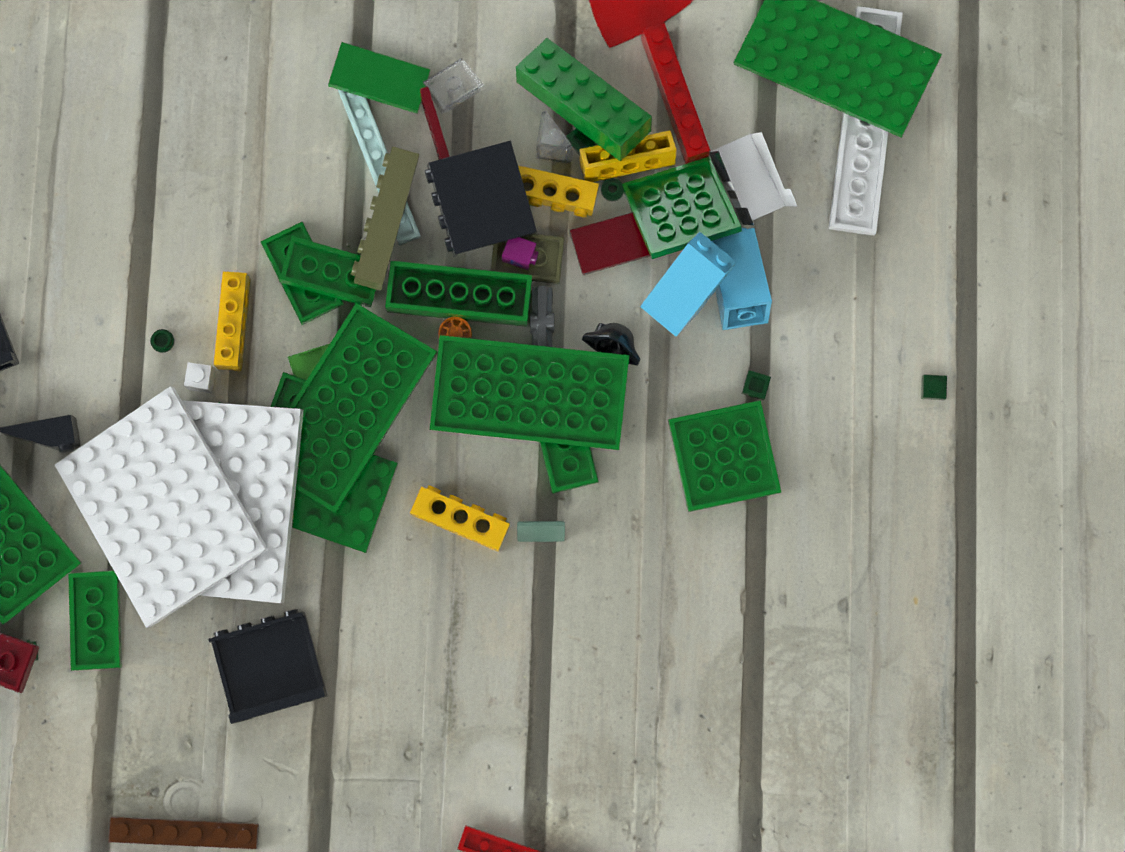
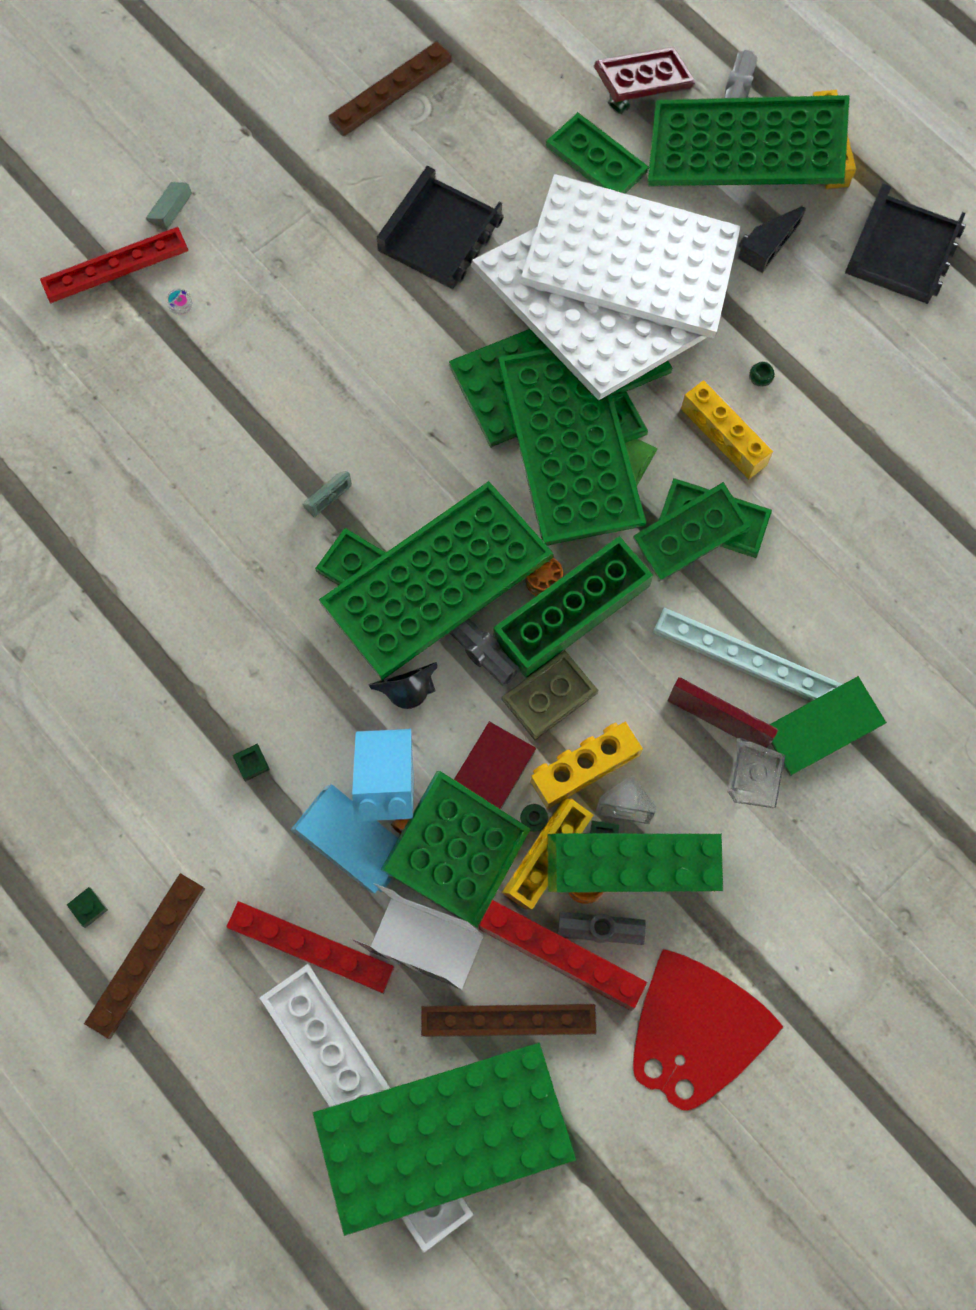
camera: 145 degrees right, 10 degrees down
(199, 377) = (704, 367): white brick -> none
(386, 218) = (693, 609): olive brick -> none
(423, 510) = (407, 433): yellow brick -> none
(480, 198) = (631, 688): black panel -> none
(509, 785) = (179, 301): none -> clear tile
(520, 253) = (556, 683): magenta brick -> none
(626, 77) = (620, 929): none -> dark grey piece
(724, 456) = (226, 679): green plate -> none
(740, 89) = (508, 1020): none -> reddish brown plate
(820, 241) = (310, 947): none -> red plate
(921, 325) = (144, 956): none -> reddish brown plate

